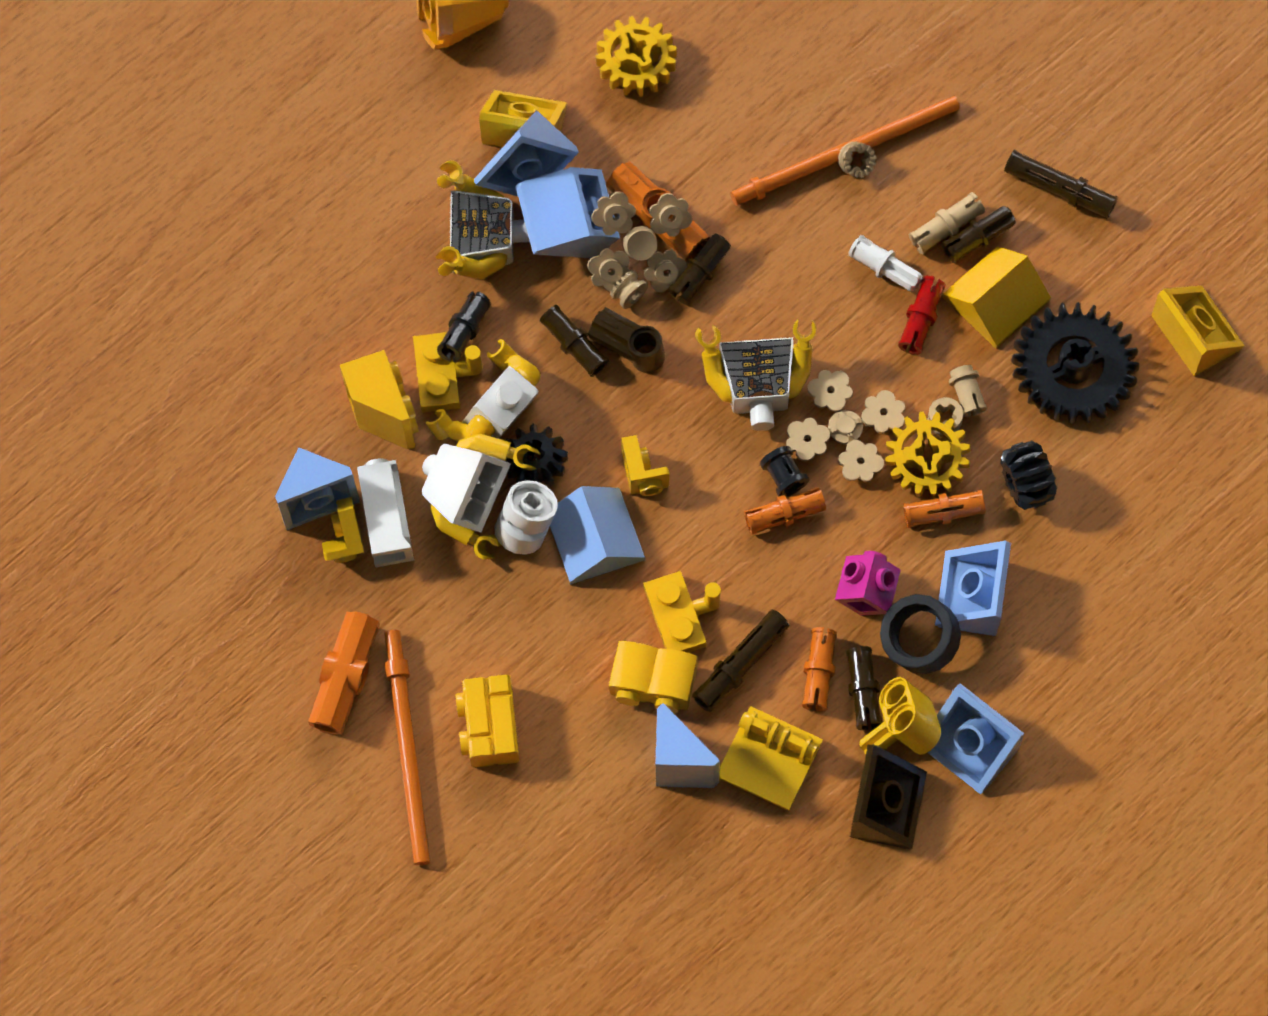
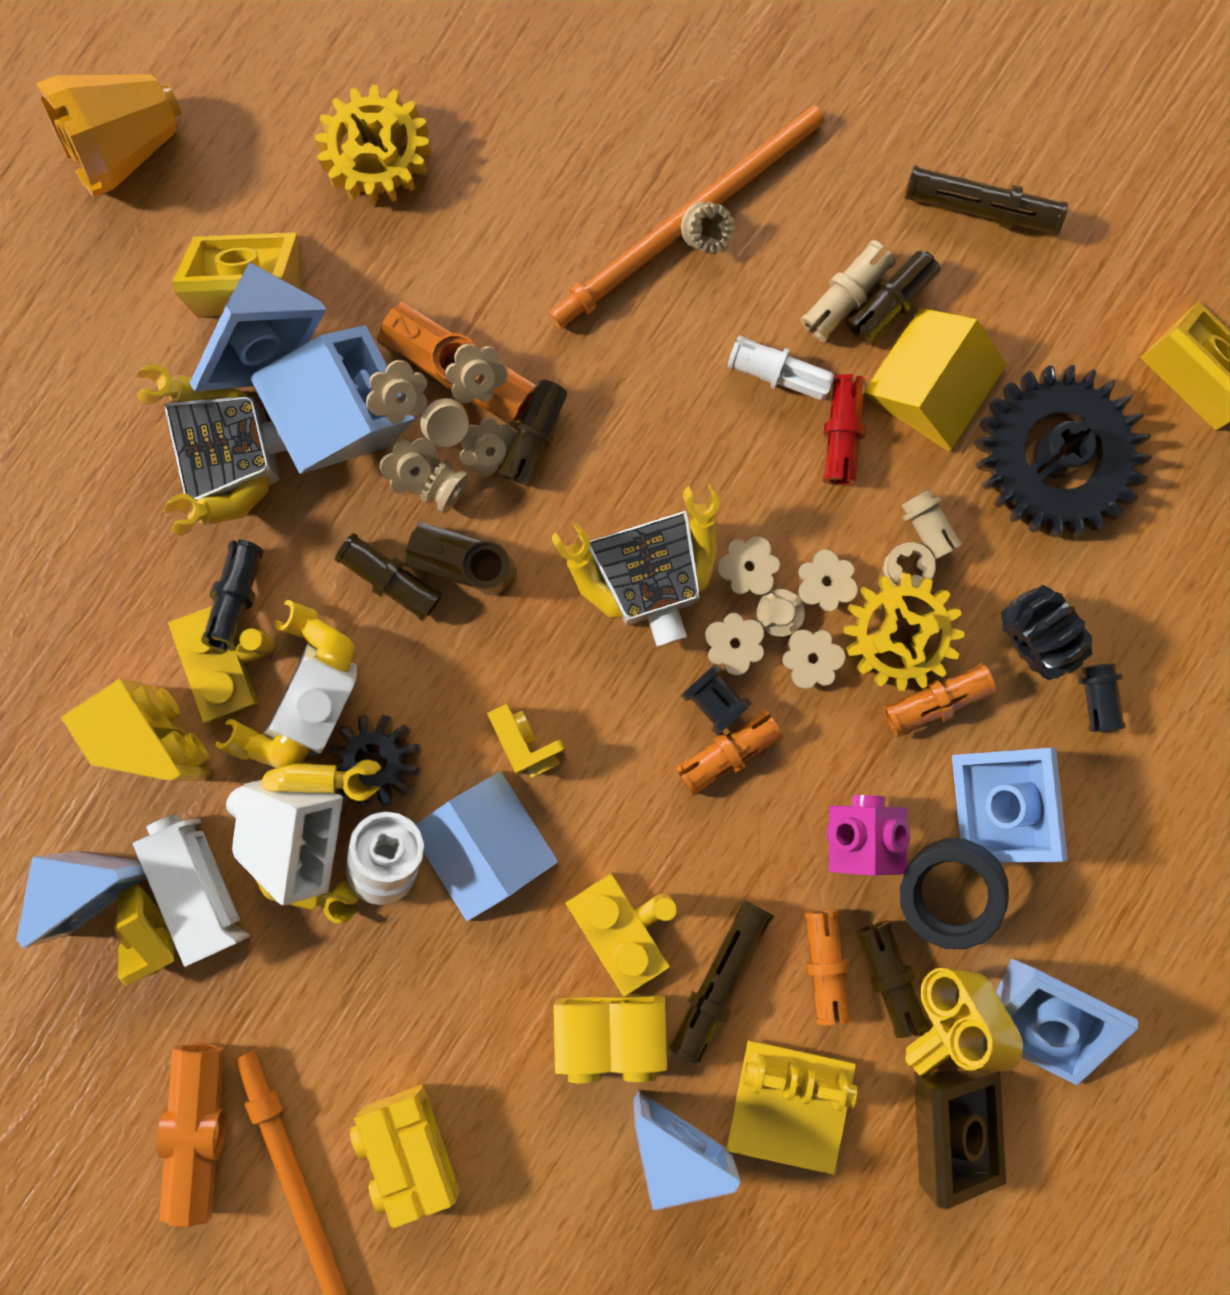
camera: 20 degrees left, 15 degrees up
(1062, 533) = (1103, 697): none -> black pin

